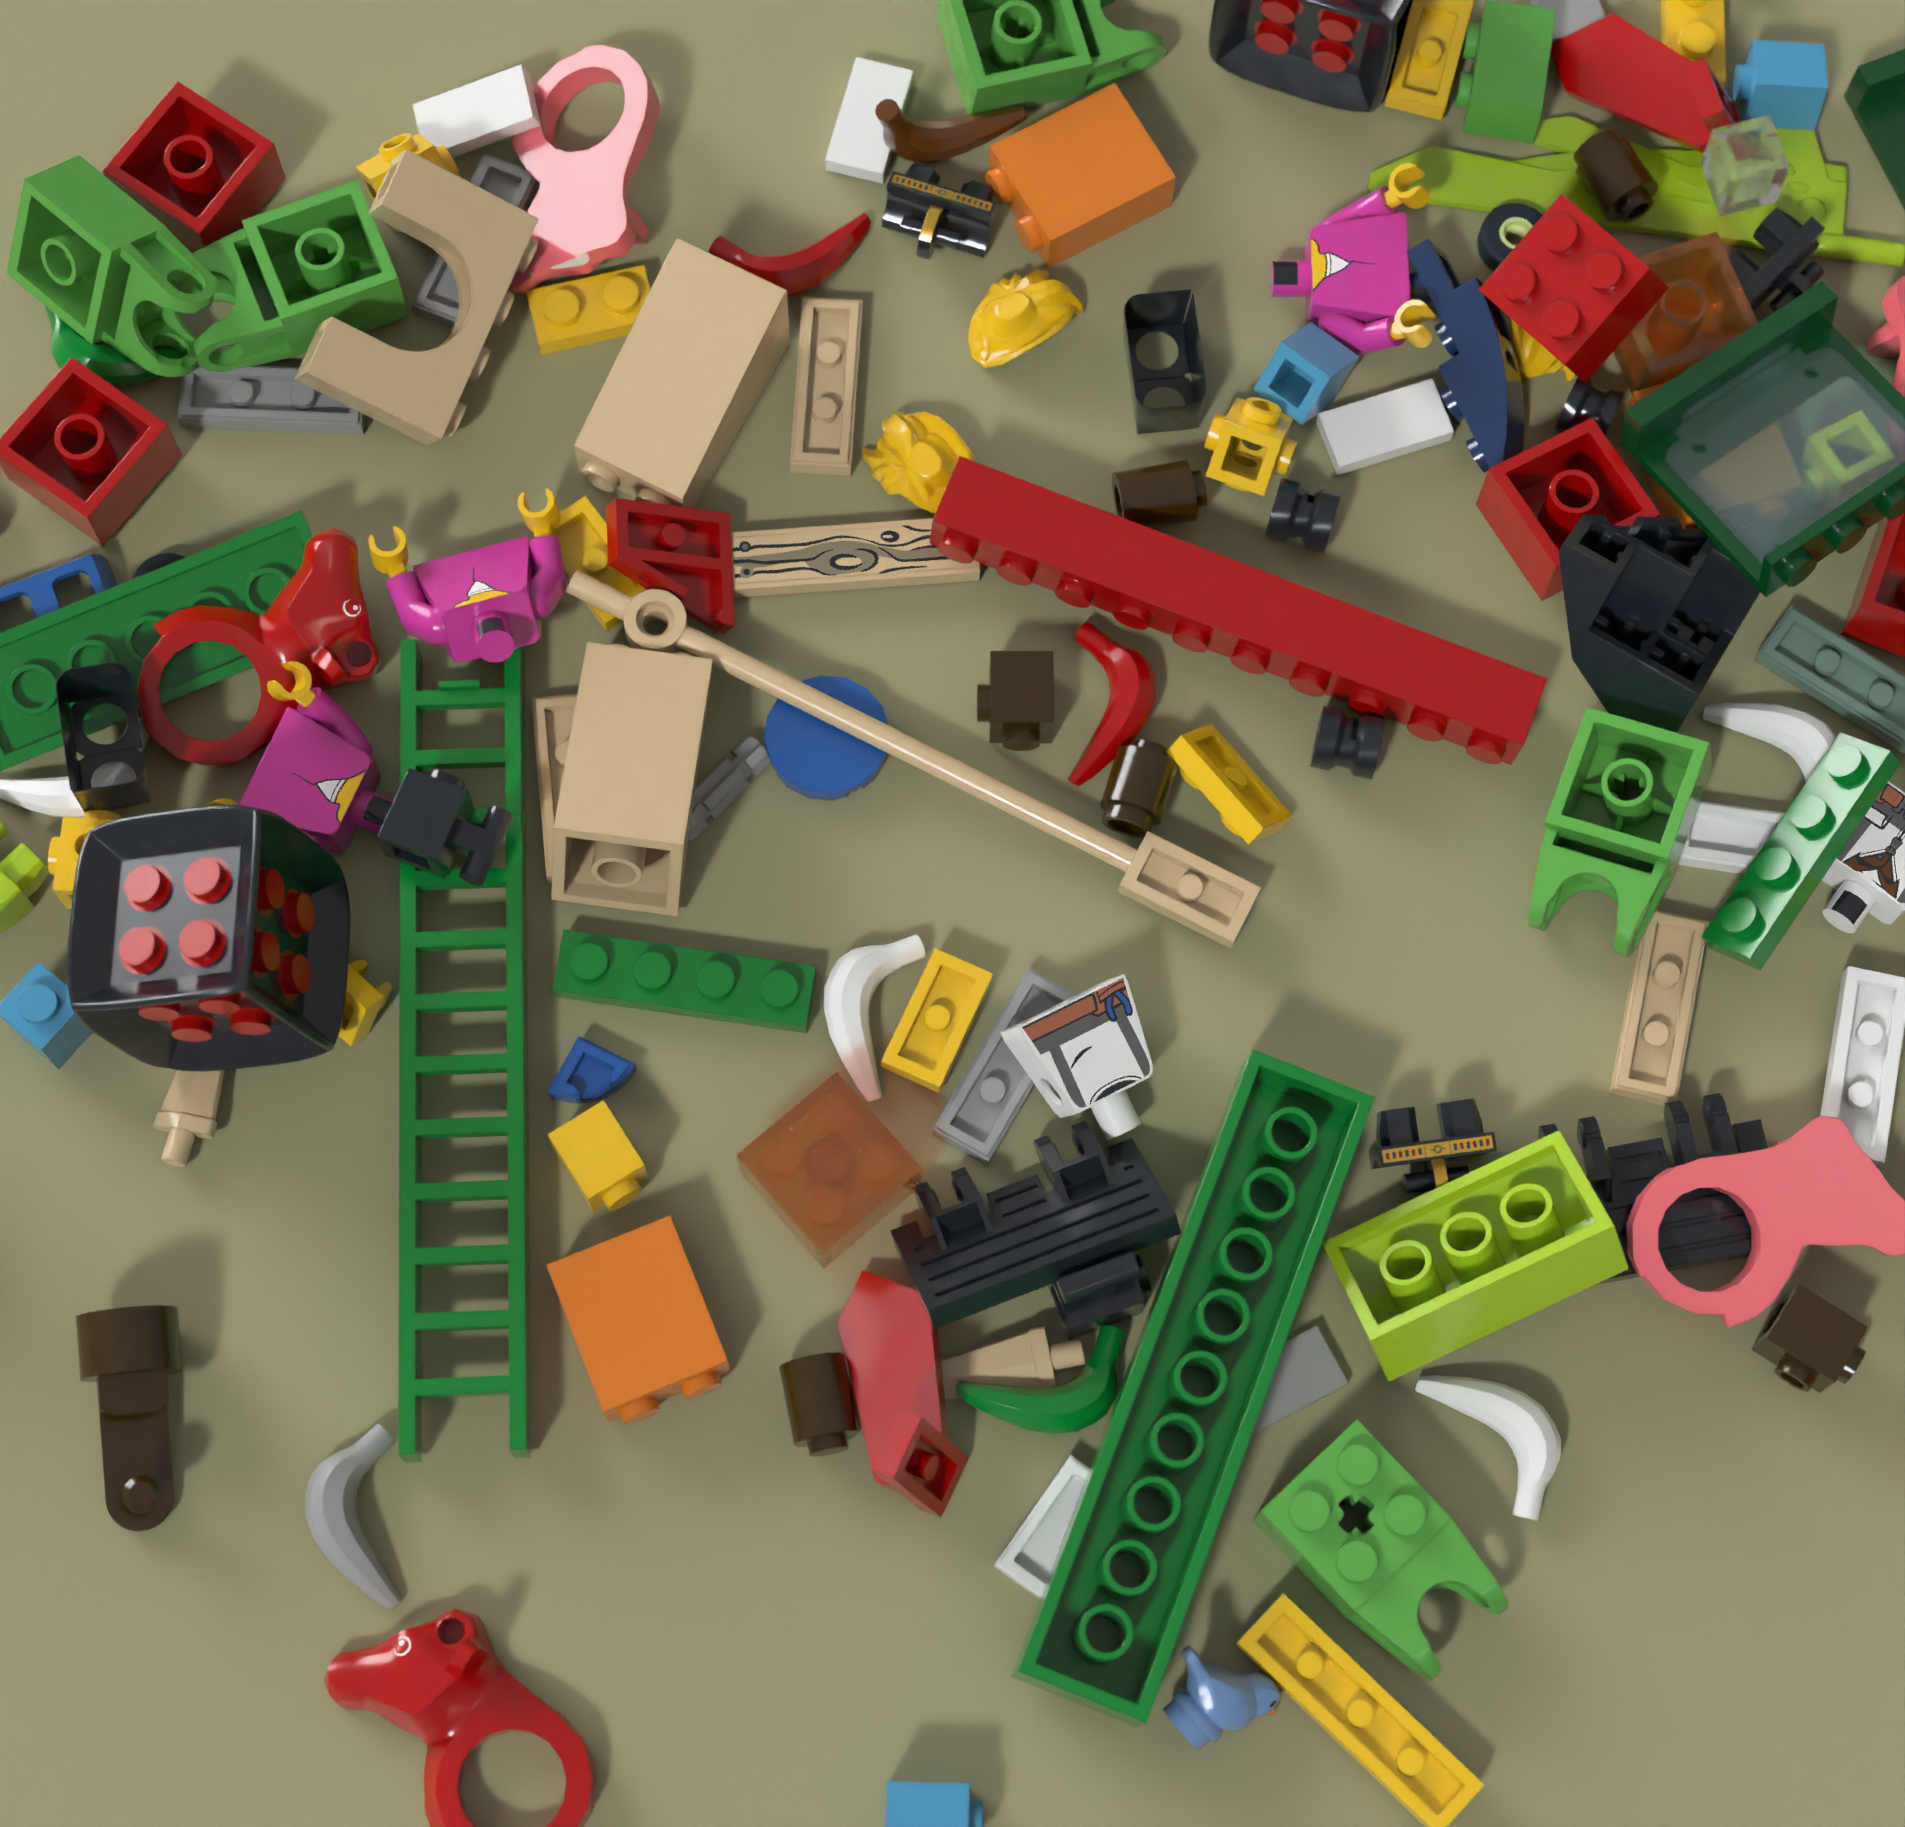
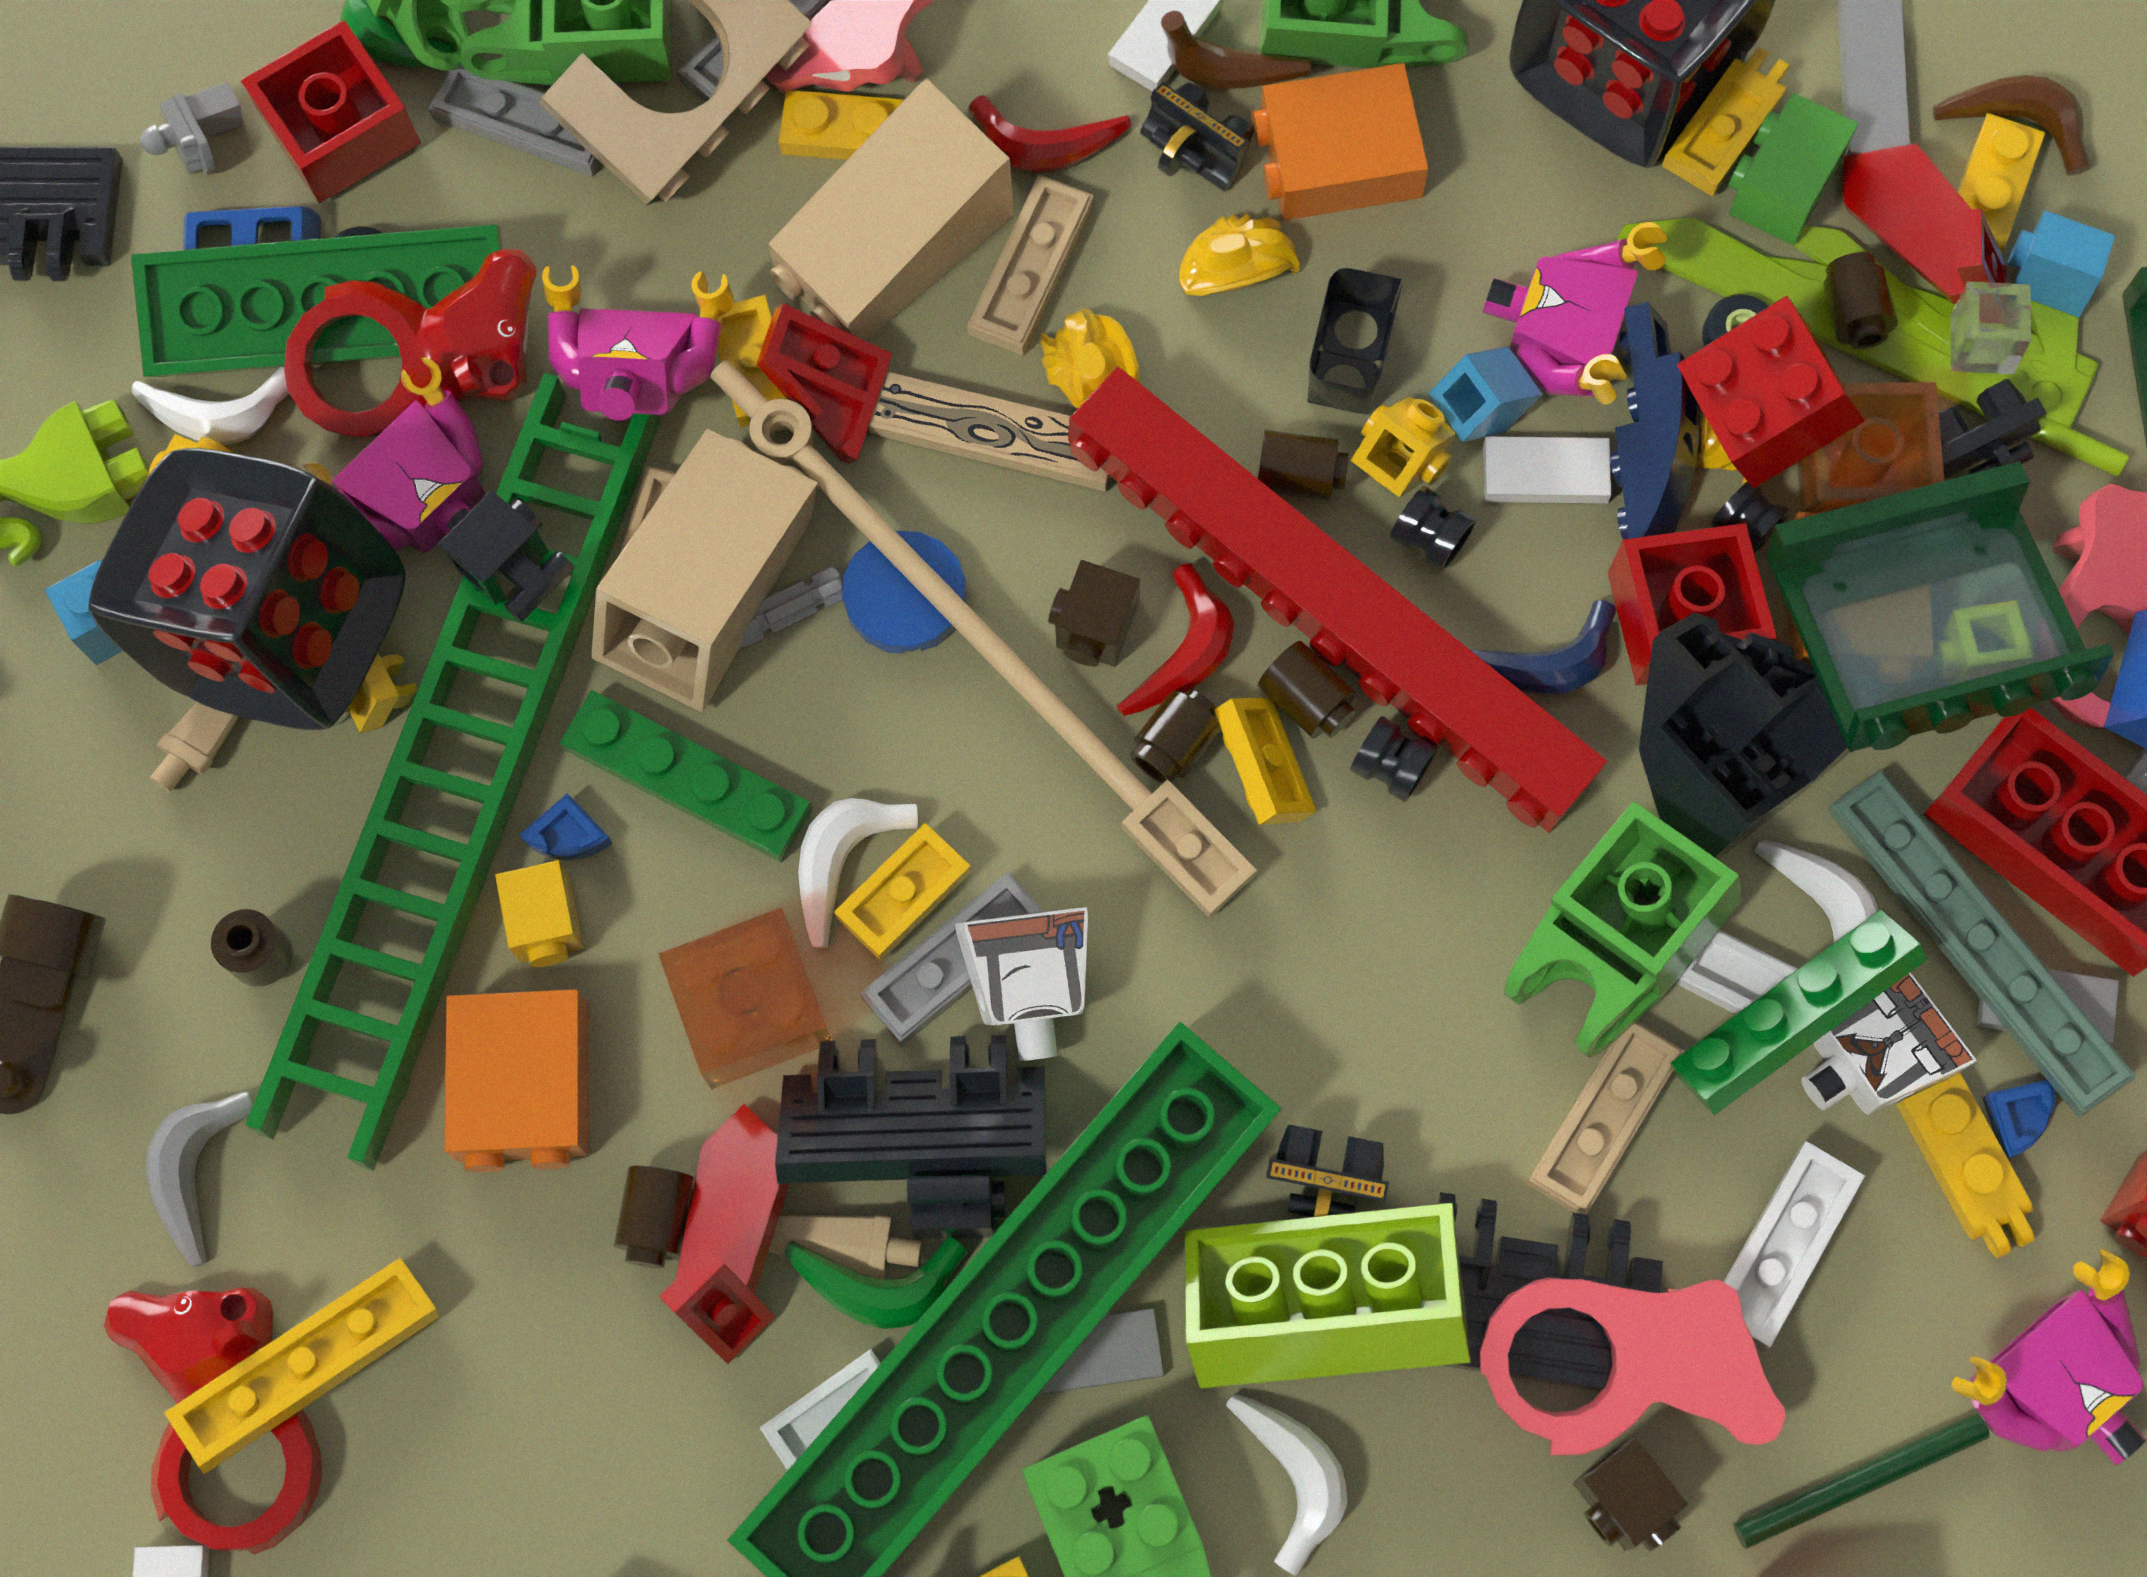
camera: 25 degrees right, 0 degrees up
(88, 688) = (202, 402): black piece -> none
(347, 1299) = (251, 947): none -> dark brown brick
(541, 1660) = (301, 1365): none -> yellow plate
(1246, 705) = (1308, 691): none -> dark brown brick
(1469, 607) = (1559, 669): none -> dark blue piece

